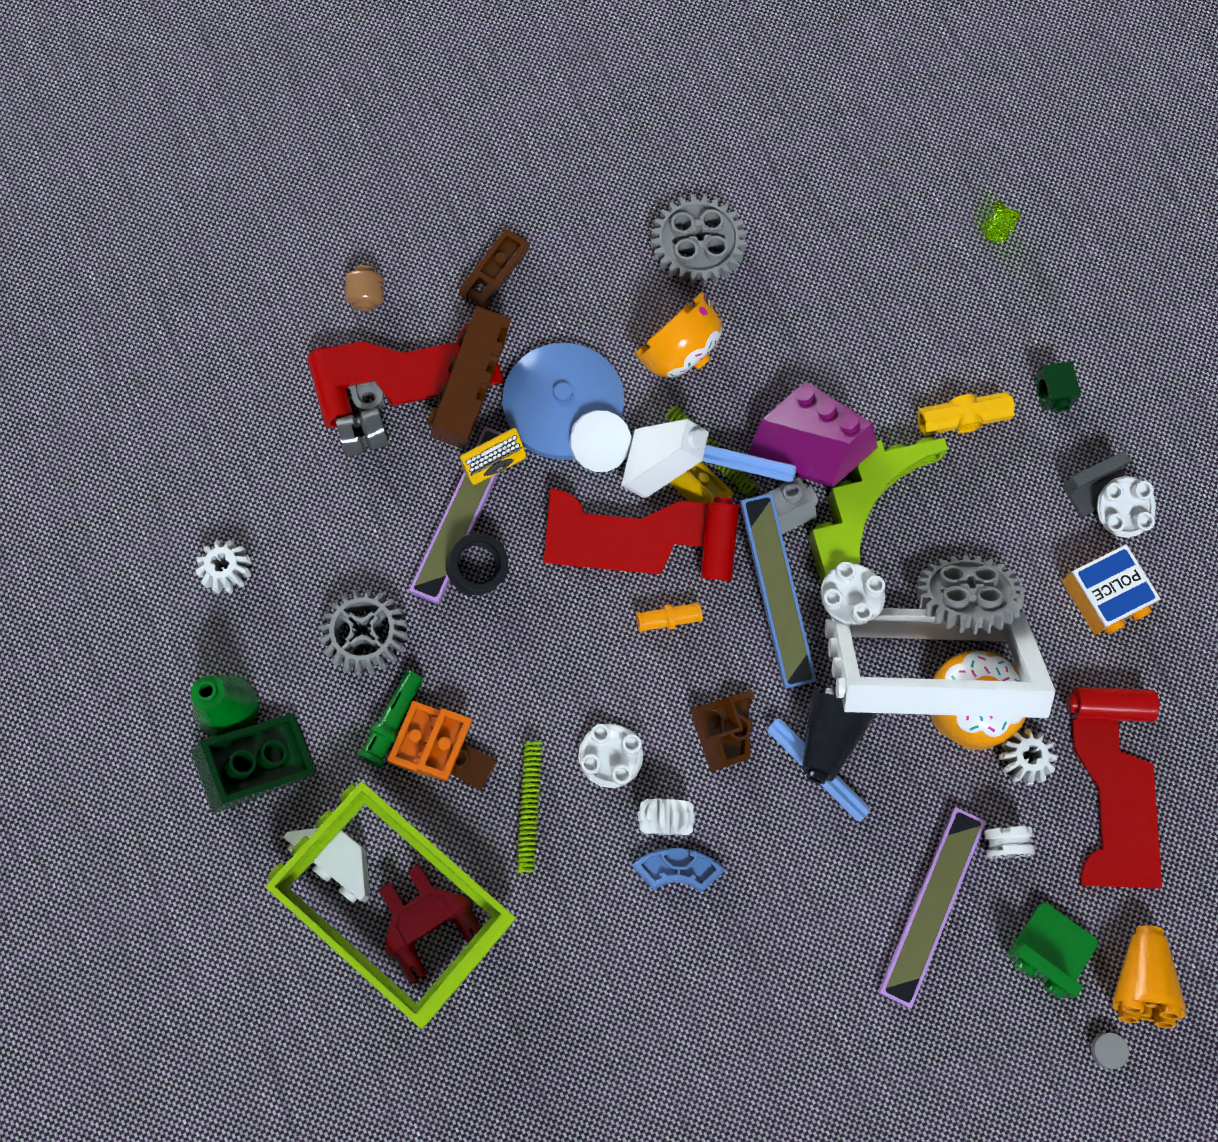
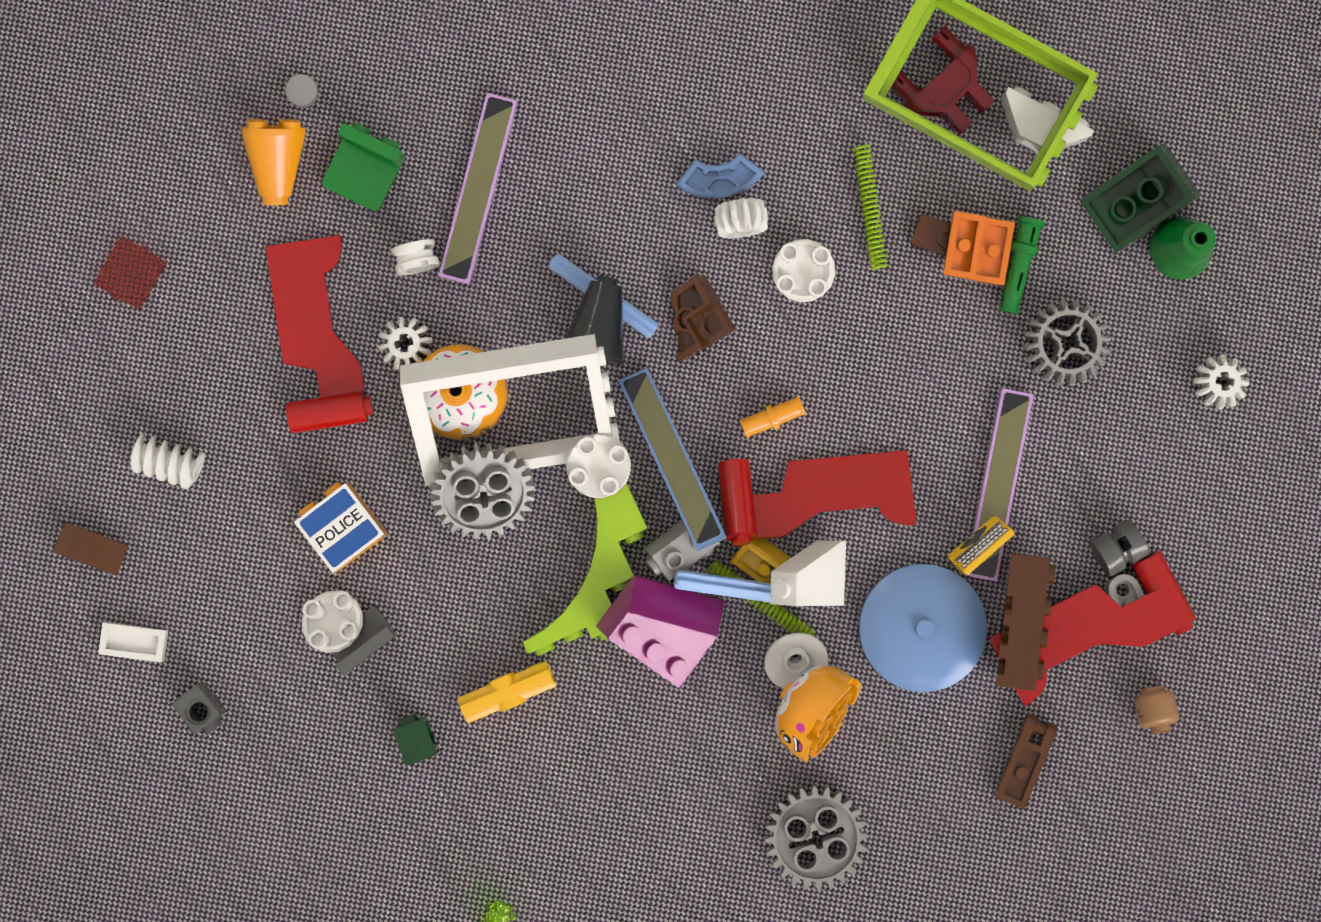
camera: 175 degrees right, 15 degrees up
(499, 555) = (960, 410): black tyre -> none
(600, 441) = (876, 585): white tile -> none
(690, 390) = (782, 668): none -> white dish

